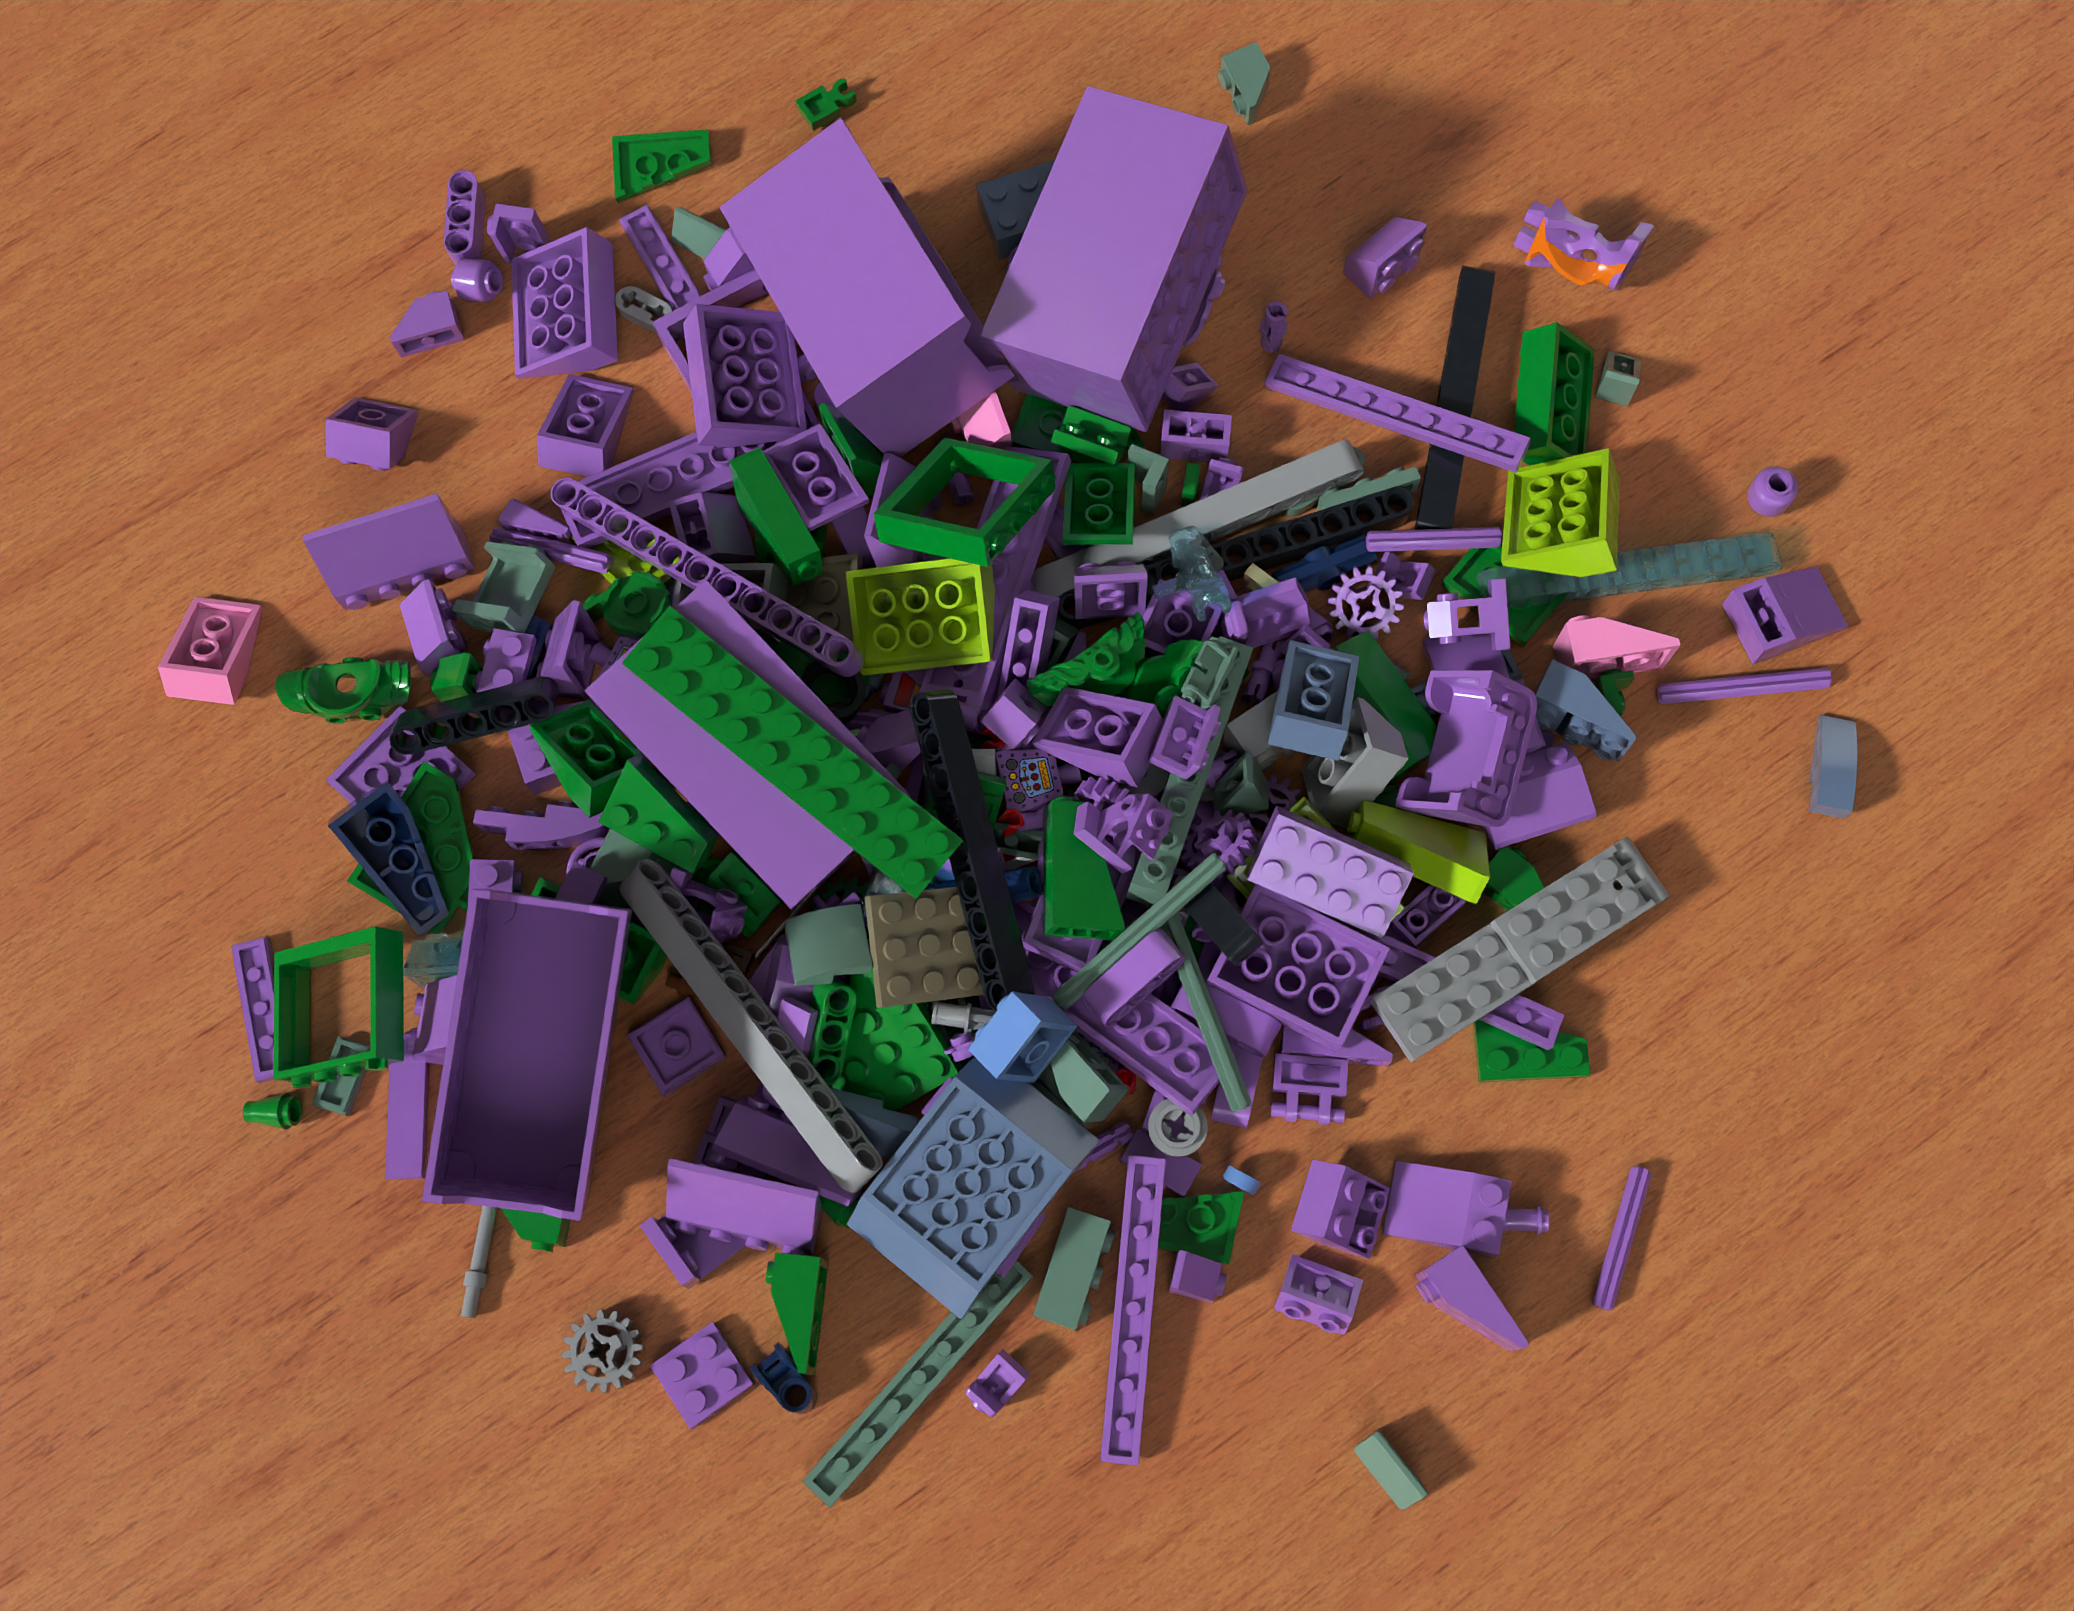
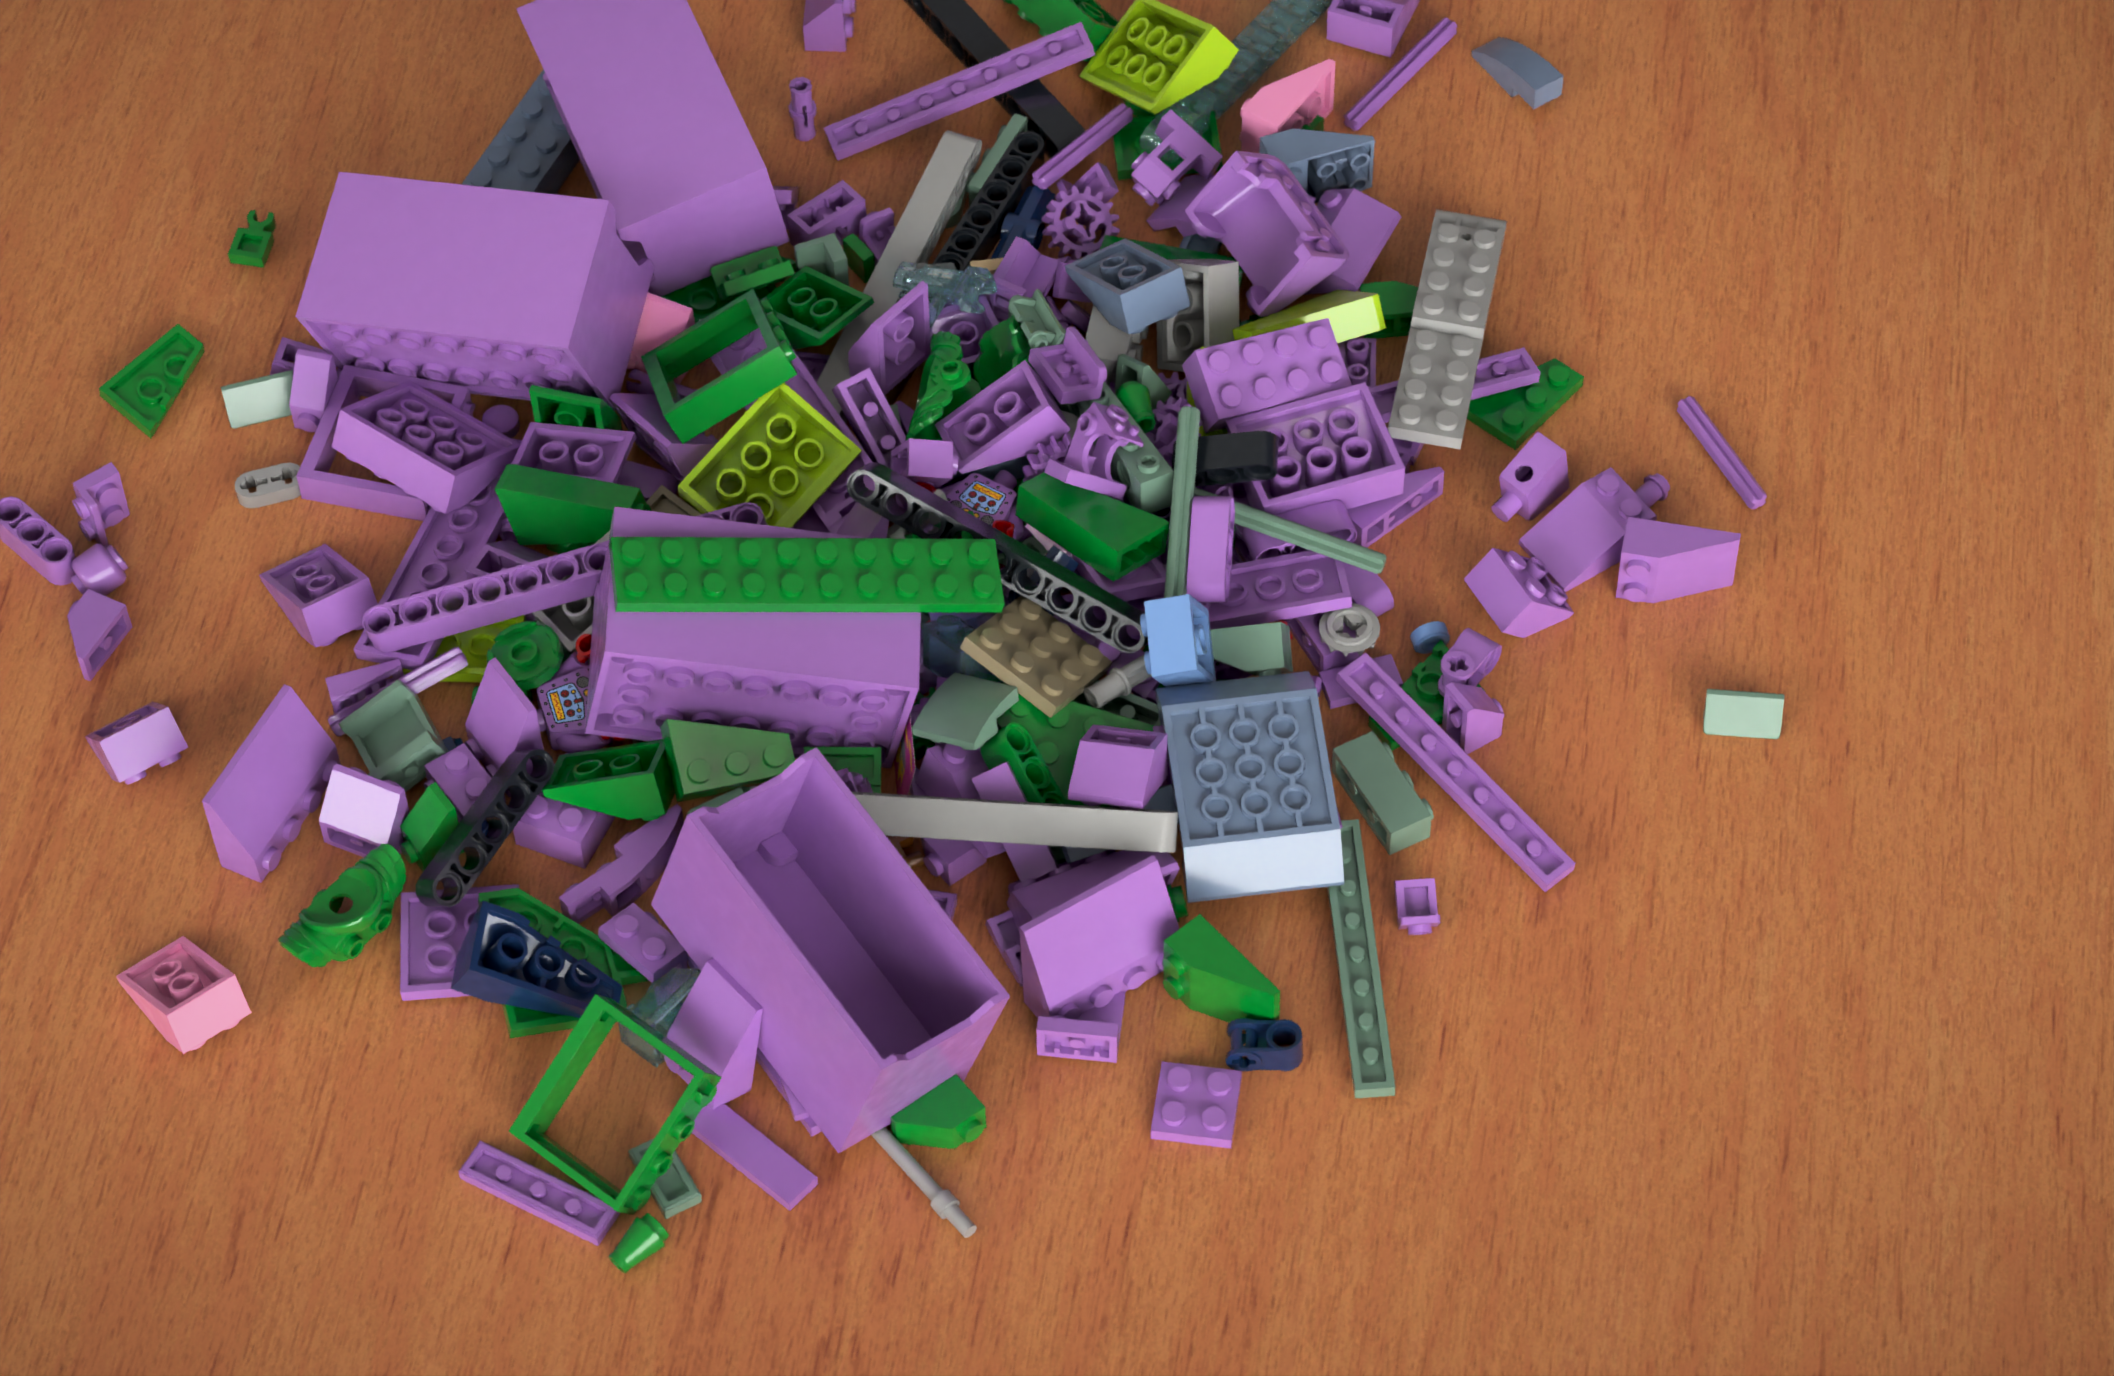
camera: 50 degrees left, 20 degrees down
(564, 306) = (198, 532): medium lavender slope -> none
(596, 1336) = (1121, 1157): light grey gear -> none
(659, 257) = (238, 443): medium lavender tile -> none
(878, 1093) = (1119, 767): none -> medium lavender slope
(960, 1046) = (1139, 701): medium lavender plate -> none
(1213, 806) = (1138, 403): none -> green cone
(1239, 1233) = (1468, 660): none -> medium lavender piece
(1310, 1077) = (1403, 535): medium lavender plate -> none
(1318, 1295) = (1569, 660): medium lavender bracket -> none
(1461, 1134) = (1532, 479): none -> medium lavender torso

